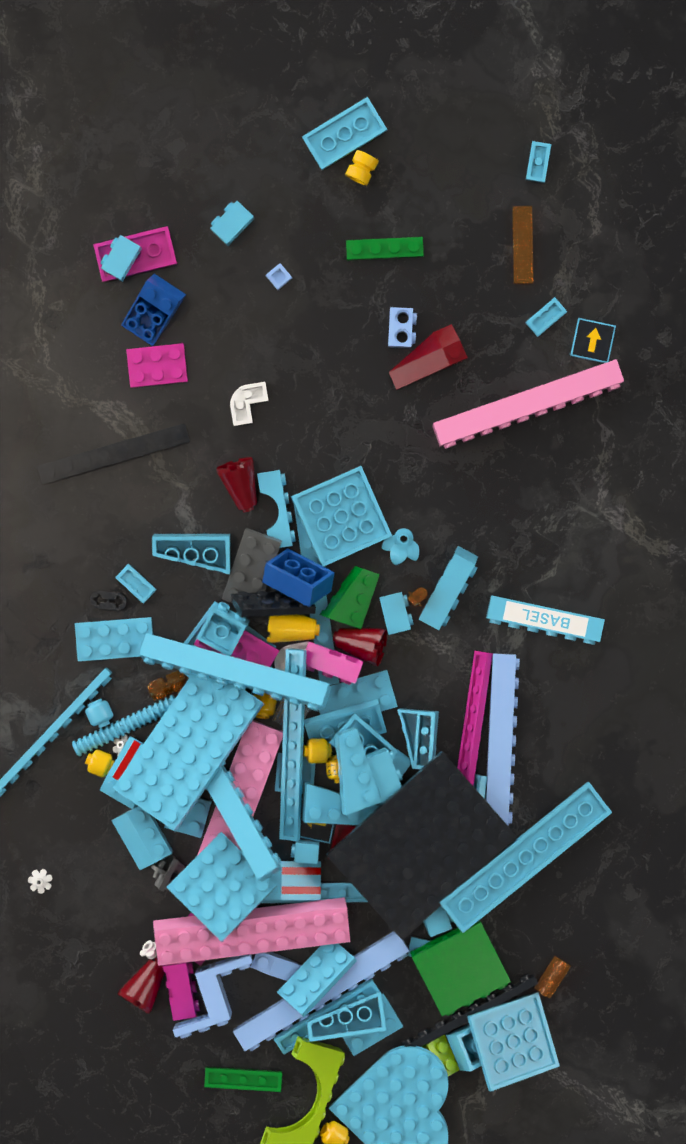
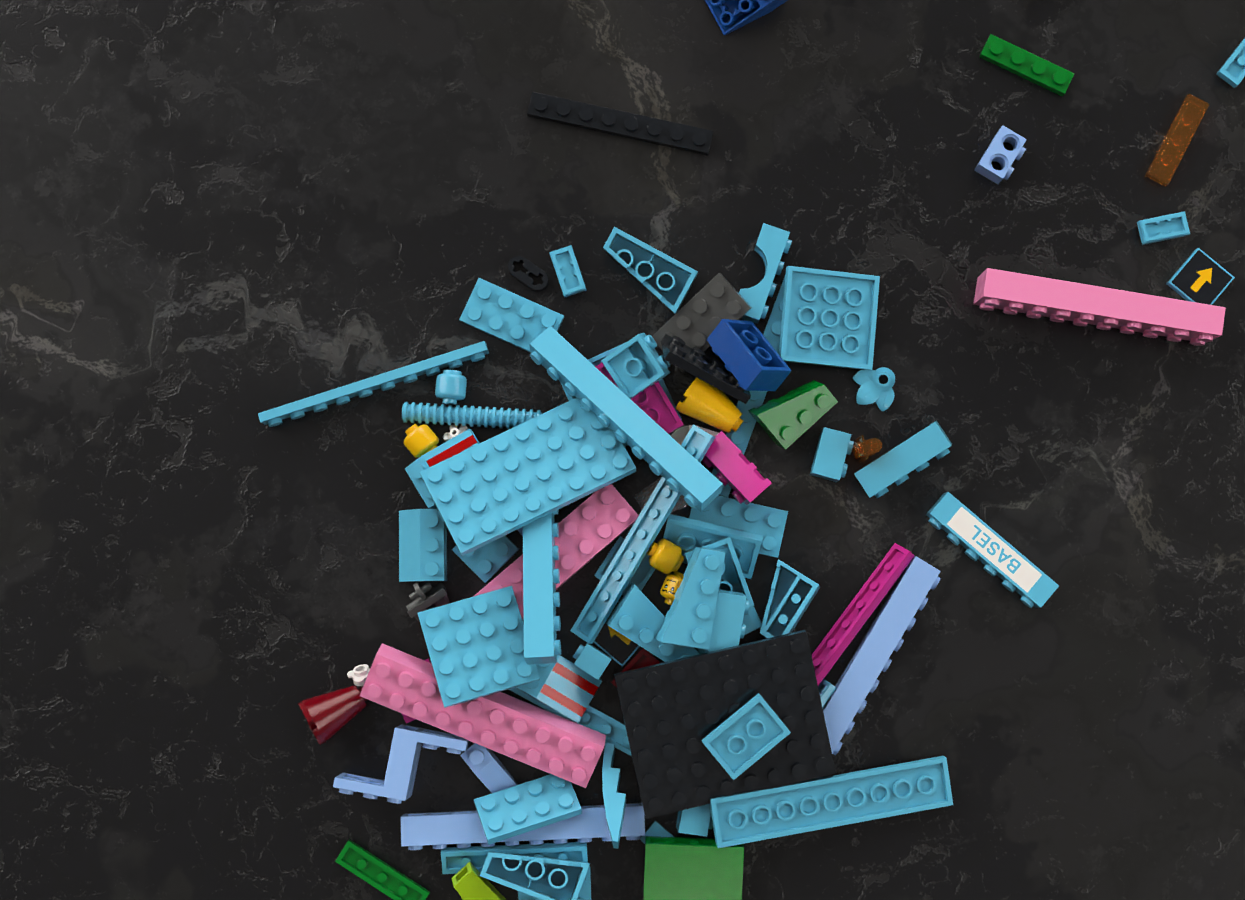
camera: 30 degrees right, 5 degrees down
(42, 878) = (289, 535): white plant -> none
(157, 365) = (717, 56): dark pink plate -> none
(159, 689) = (529, 397): clear orange hinge -> none
(181, 990) = (370, 739): dark pink wedge -> none
(240, 482) = (739, 224): dark red cone -> none
(243, 398) = (790, 139): white plate -> none
(268, 708) = (637, 480): yellow head -> none
(279, 276) = (897, 34): light blue tile -> none
(362, 643) = (779, 466): dark red cone -> none
(373, 939) = (613, 801): none -> medium azure slope
(434, 354) = (1023, 204): dark red wedge -> none
(439, 847) = (746, 736): none -> medium azure plate

